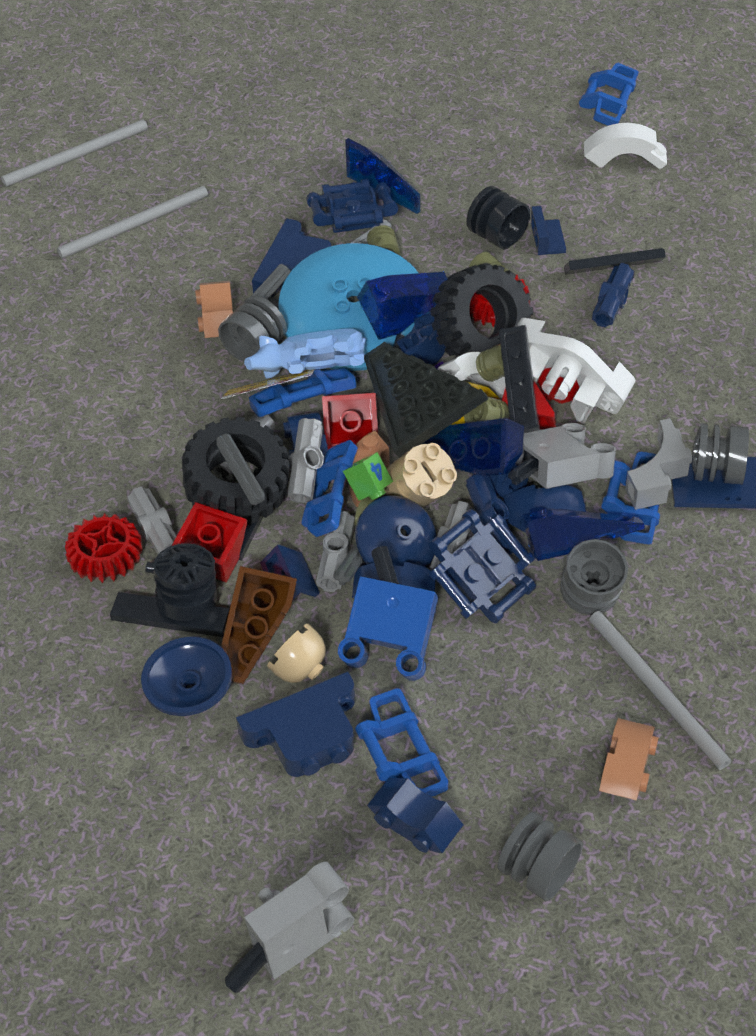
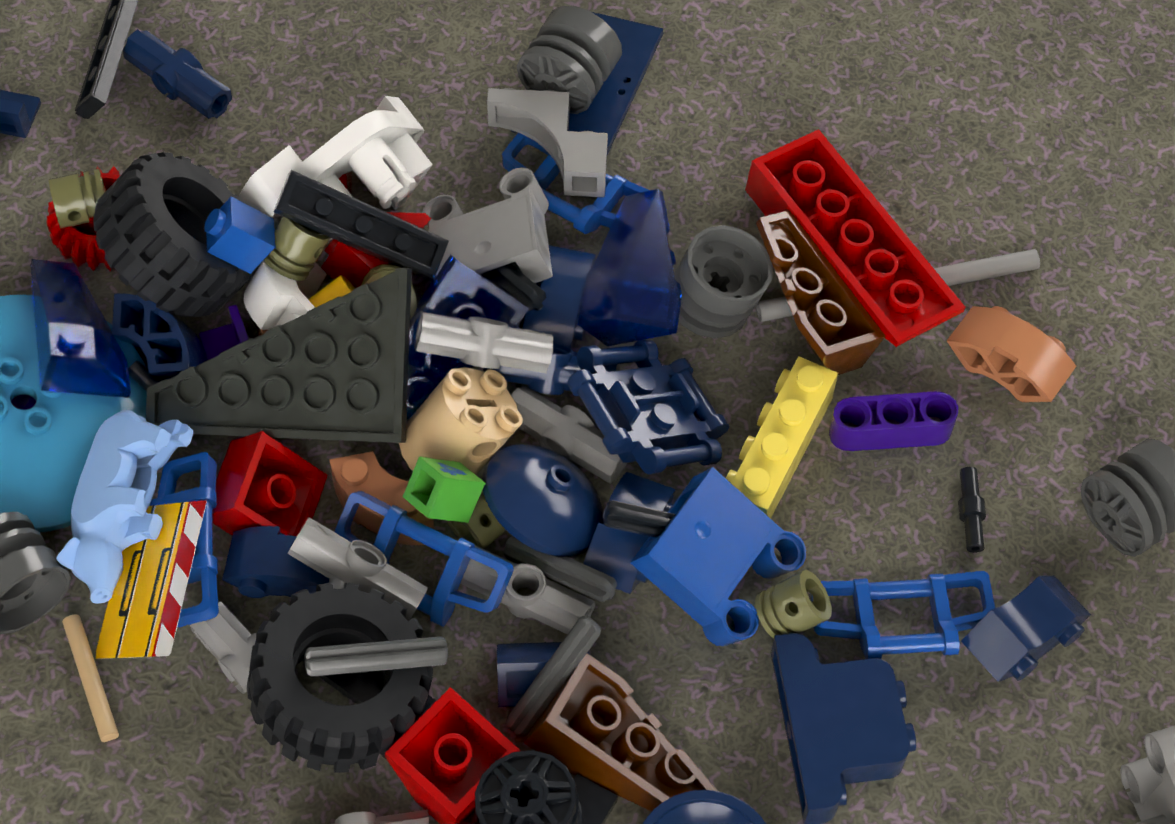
camera: 75 degrees left, 10 degrees up
(214, 390) = (90, 678): none -> tan bar
(292, 569) = (553, 676): none -> dark grey axle
(300, 656) = (708, 687): tan cylinder -> none
(373, 676) = (788, 608): none -> olive piece
(469, 459) = (484, 342): none -> light grey piece
(484, 330) = (240, 234): none -> blue brick
(493, 646) = (784, 433): none -> light yellow brick
(497, 769) = (972, 509): none -> black bar
(543, 718) = (908, 409): none -> dark purple beam
(597, 630) = (819, 299): none -> reddish brown wedge
(668, 640) = (854, 235): none -> red slope

